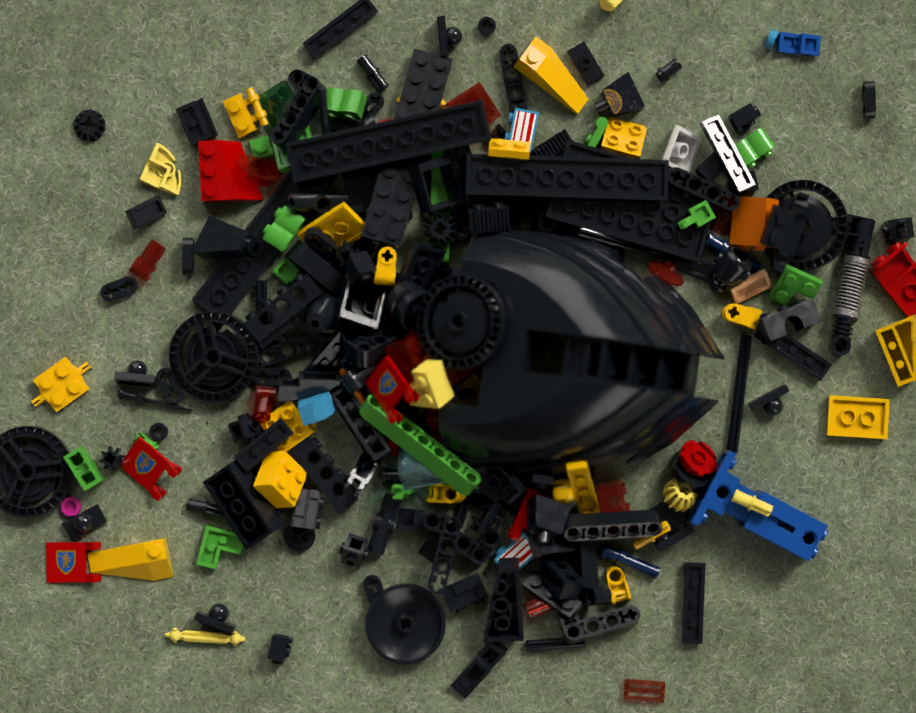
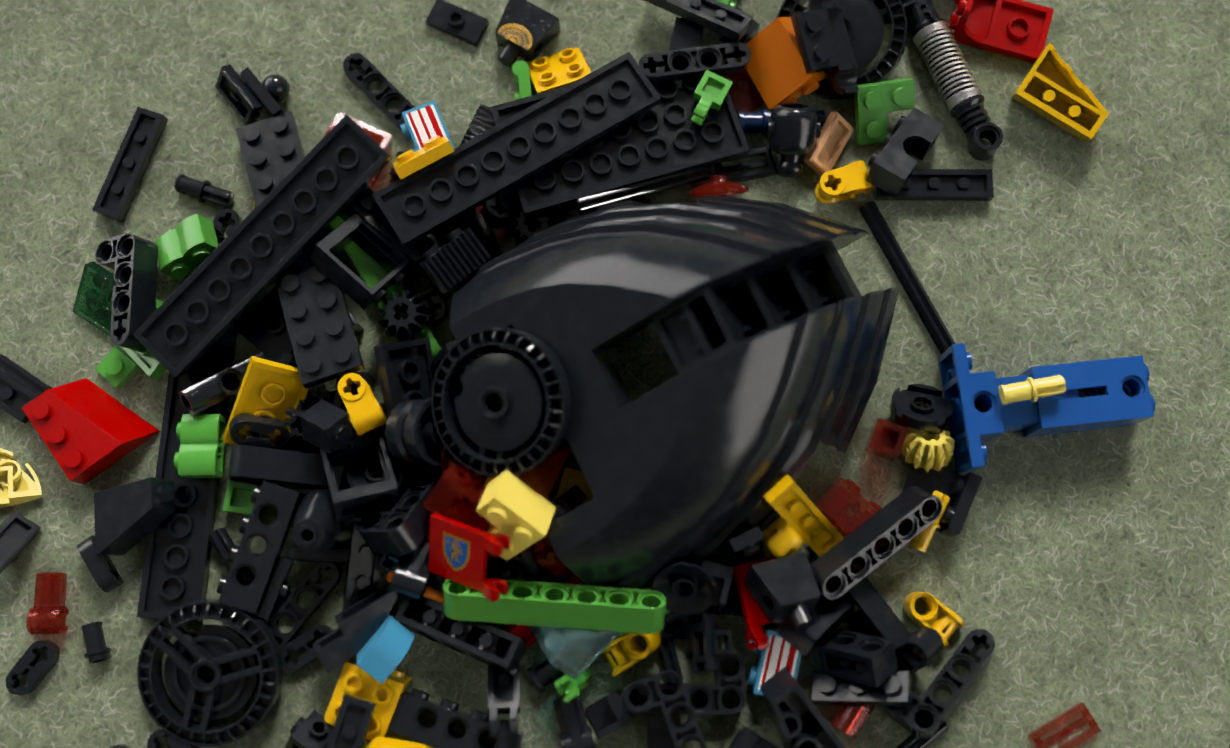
camera: 30 degrees left, 10 degrees down
(160, 298) = (95, 642): none -> black pin
(240, 114) = (66, 345): yellow plate -> none
(259, 170) = (127, 396): clear red piece -> none
(264, 403) = (314, 687): clear red piece -> none
(323, 111) = (160, 263): black bar -> none
(428, 26) = (238, 95): none -> black tile
(481, 29) = (310, 44): black bush -> none
(549, 73) = (416, 57): yellow wedge -> none
(620, 558) = (911, 578): dark blue pin -> none
(659, 475) = (886, 439): none -> clear red brick
(681, 148) = (633, 34): white slope -> none
(693, 602) = (1043, 573): black plate -> none
(697, 458) = (917, 387): red tile -> none
(770, 401) = (951, 260): black tile -> none
(857, 417) = (1067, 211): yellow plate -> none

